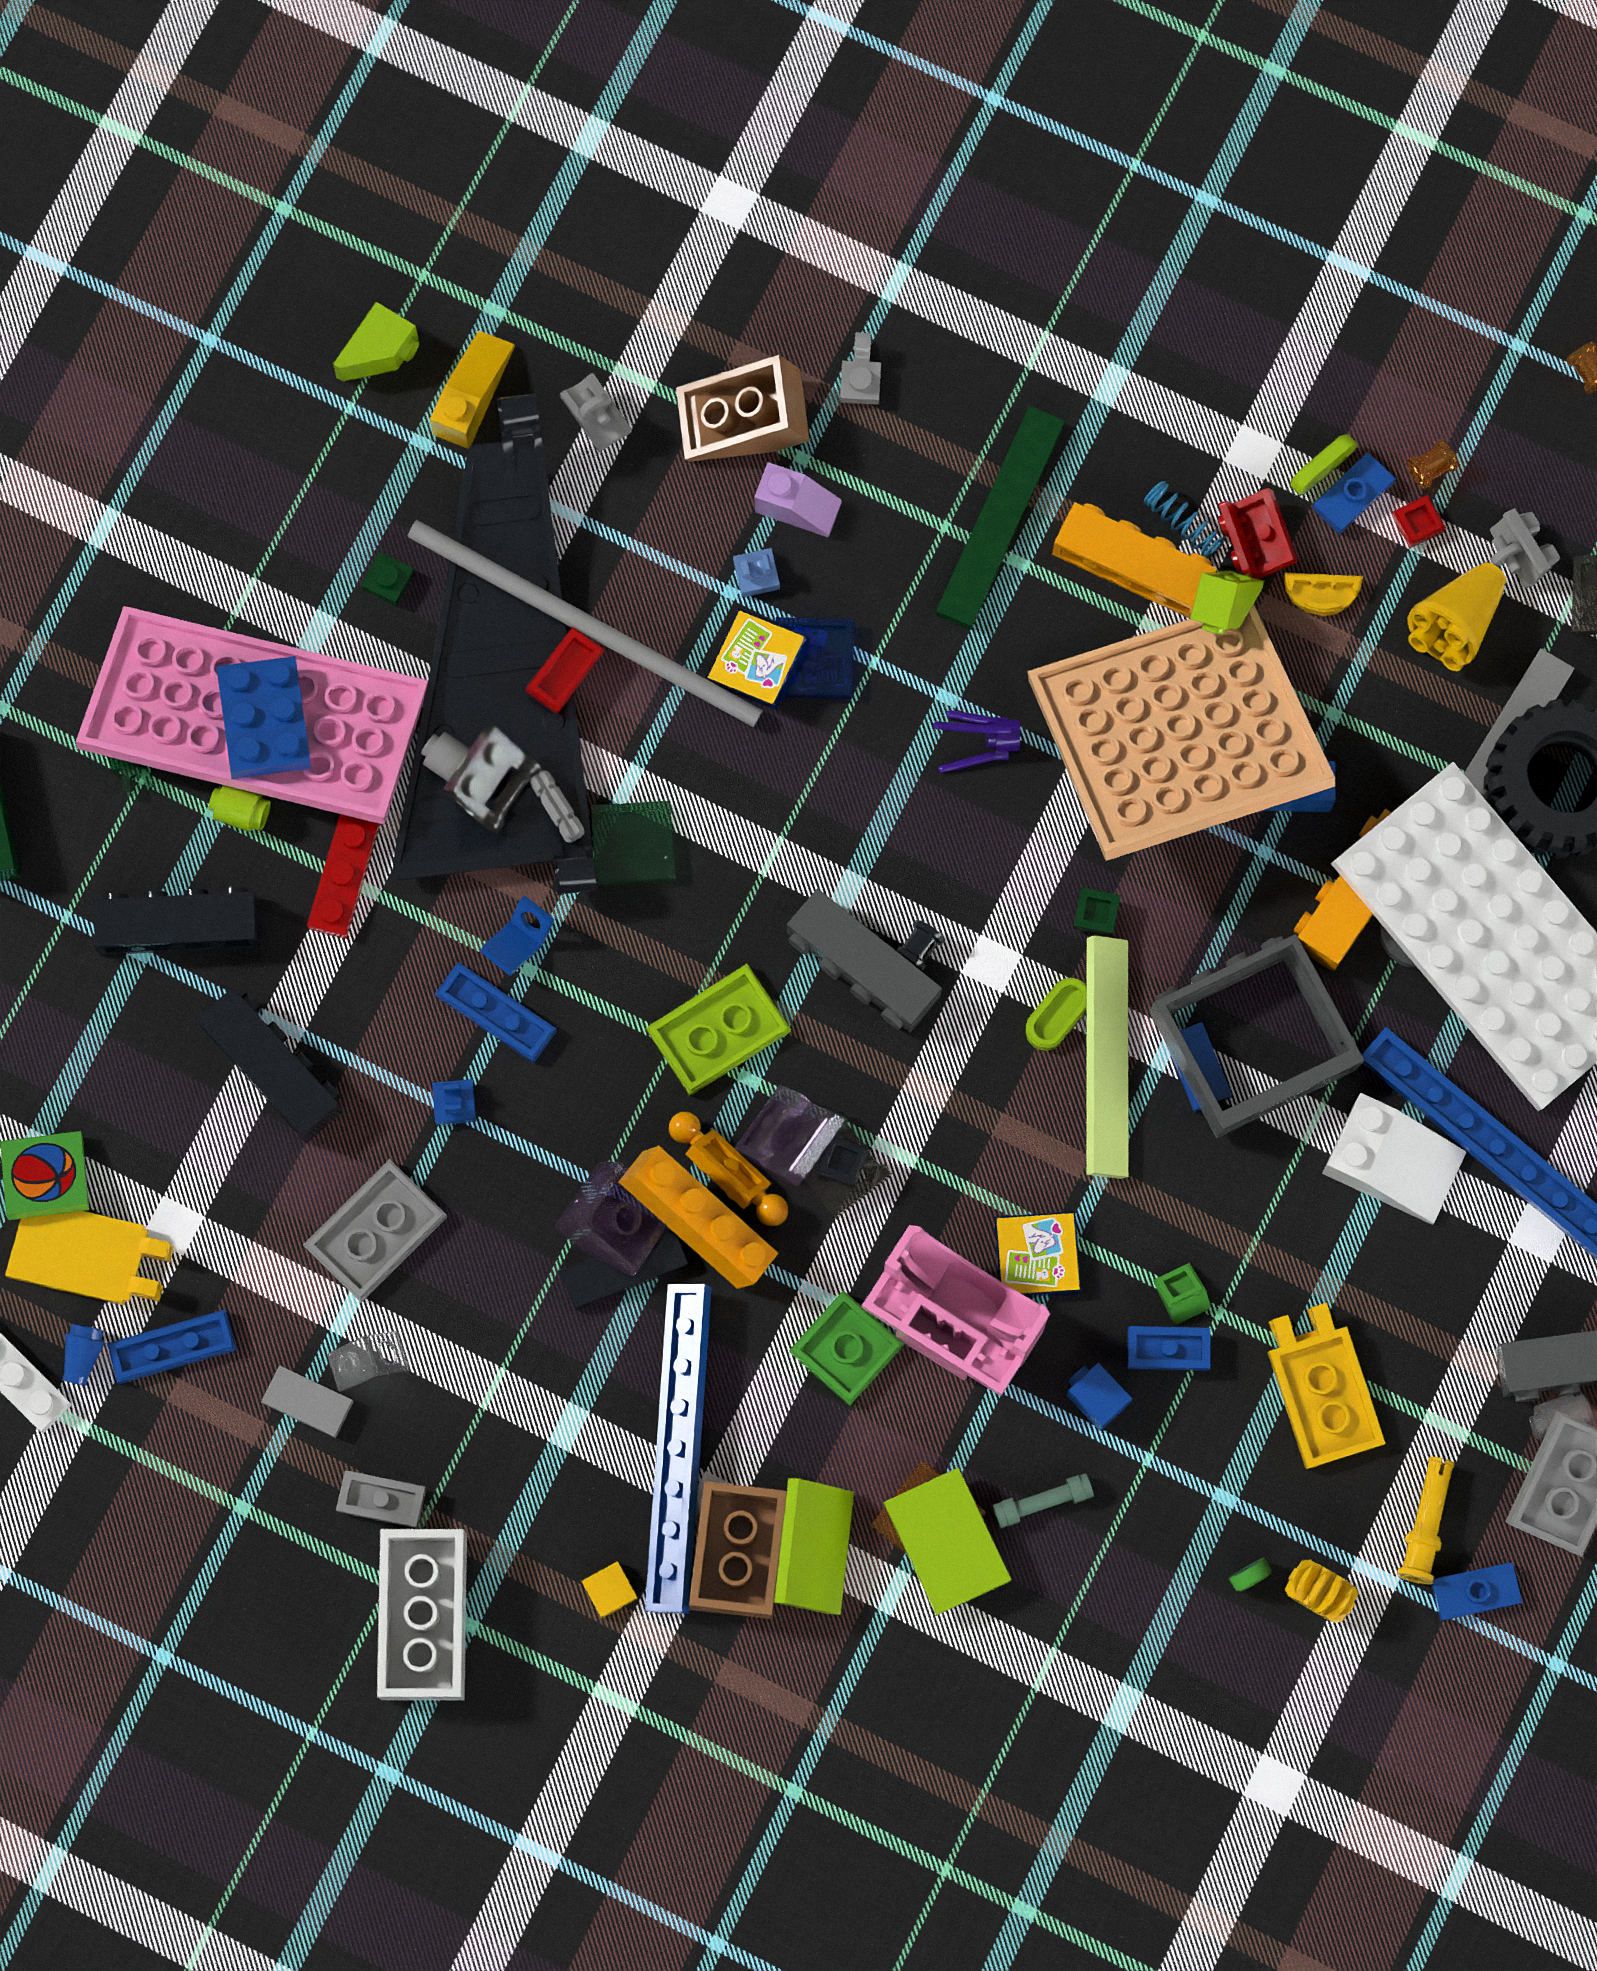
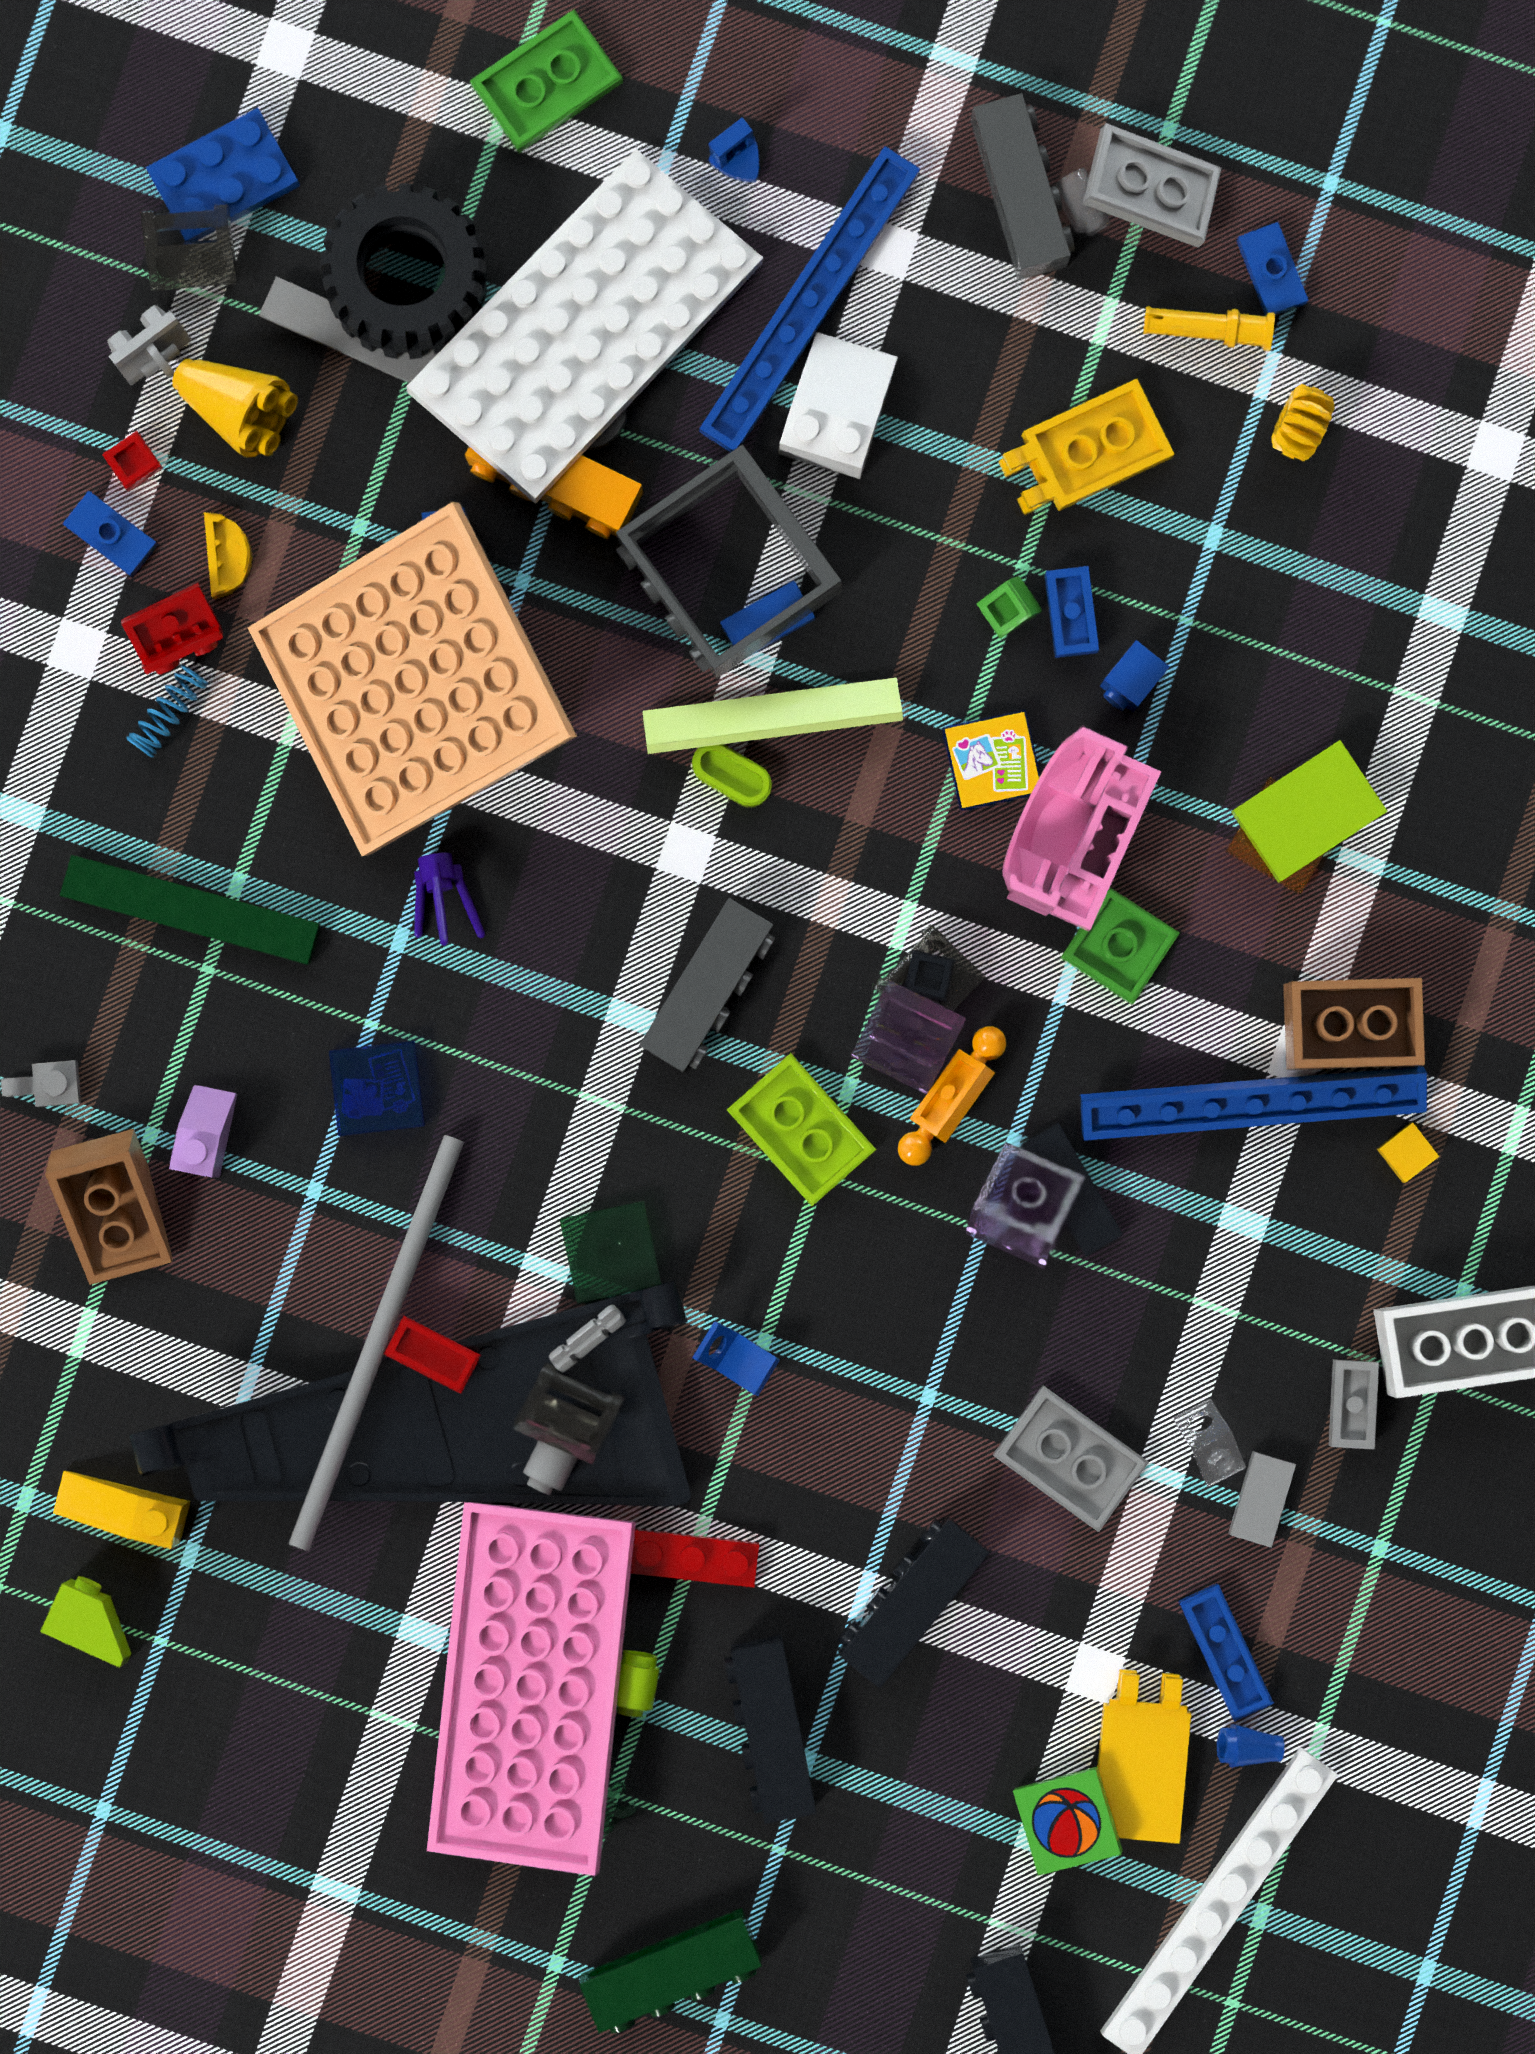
camera: 105 degrees left, 10 degrees up
(263, 717) = (536, 1674): blue plate -> none
(387, 579) = (353, 1565): dark green plate -> none
(454, 1102) = (921, 1397): blue tile -> none
(495, 1012) = (817, 1369): blue tile -> none
(596, 412) = (134, 1367): light grey hips -> none
(698, 1217) = (1017, 1117): light orange brick -> none
(756, 572) = (289, 1165): medium blue tile -> none
(758, 659) = (389, 1147): tile -> none
(814, 1546) = (1338, 946): lime tile -> none
(921, 944) = (681, 929): black bush -> none
(1076, 1489) = (1231, 687): sand green bar -> none
(1096, 912) = (617, 747): dark green plate -> none
(1131, 558) = (221, 757): light orange brick -> none
(1224, 600) = (256, 652): lime slope -> none
(1250, 1575) = (1293, 498): bright green tile -> none
(1323, 464) = (83, 569): lime tile -> none
(1432, 464) = (67, 452): clear orange bush -> none

